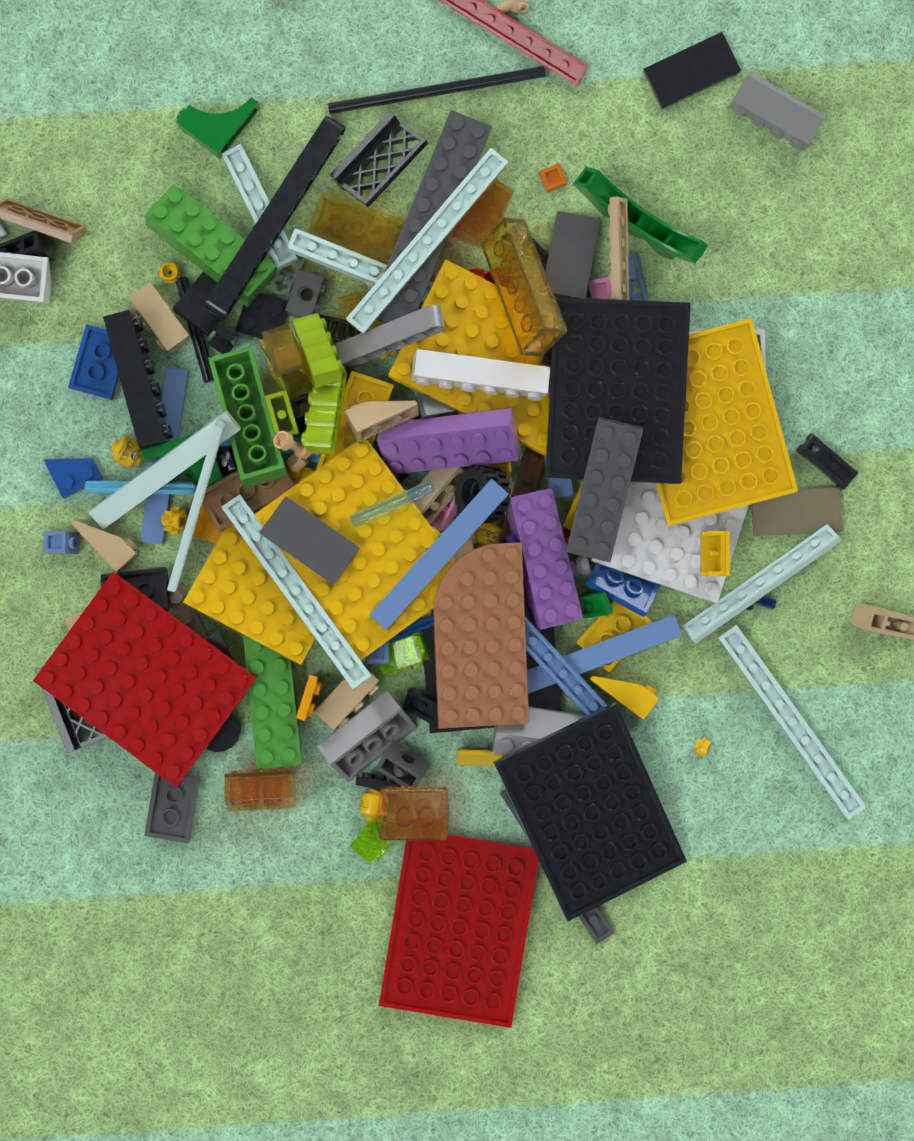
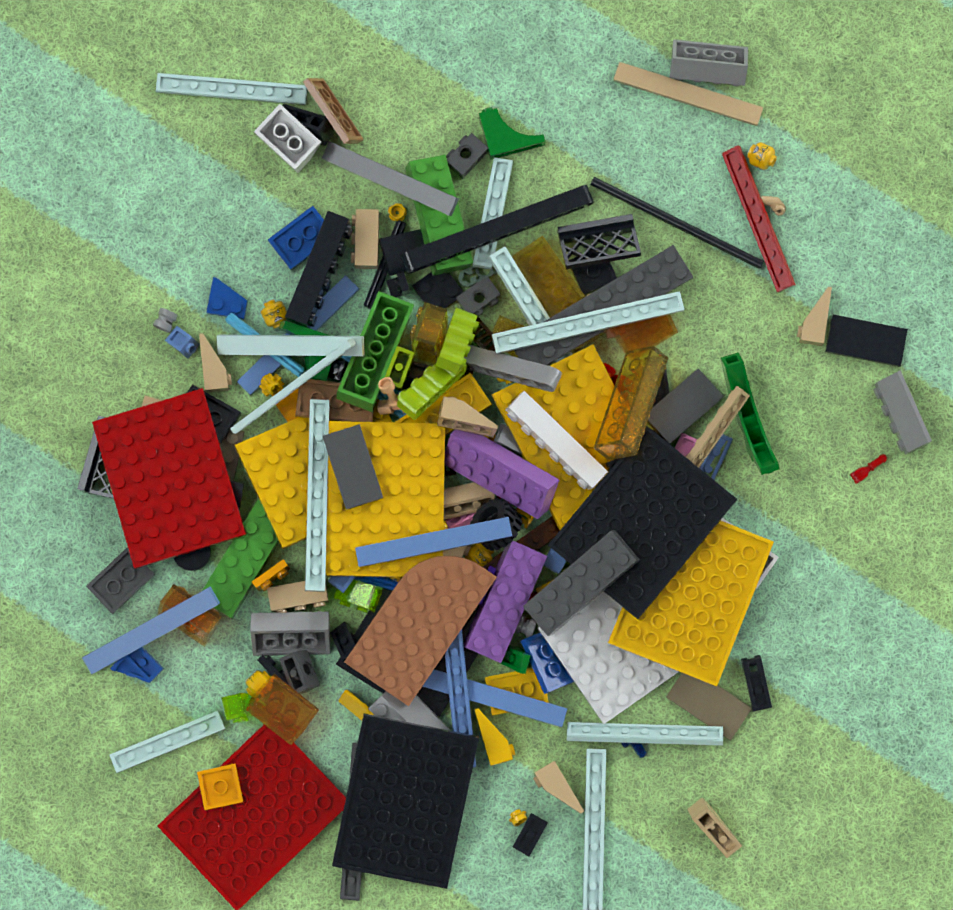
camera: 40 degrees right, 5 degrees down
(29, 534) = (165, 320): none -> light grey wheel
(139, 244) = (390, 178): none -> tile
(194, 157) = (464, 166): none -> dark grey brick
(236, 832) = (151, 630): none -> medium blue tile
(247, 870) = (138, 665): none -> blue wing
(329, 921) = (167, 741): none -> light aqua plate
(392, 503) = (427, 483): clear light blue axle -> none
(397, 196) = (593, 276): none -> black plate
(410, 927) = (220, 786): none -> light orange plate
(552, 177) = (712, 343): orange tile -> none
(635, 91) = (814, 325): none -> tan slope
(714, 691) = (554, 783): none -> tan slope
(715, 553) = (627, 687): yellow hinge -> none
(725, 754) = (530, 834): none -> black plate
(778, 195) = (862, 472): none -> red piece

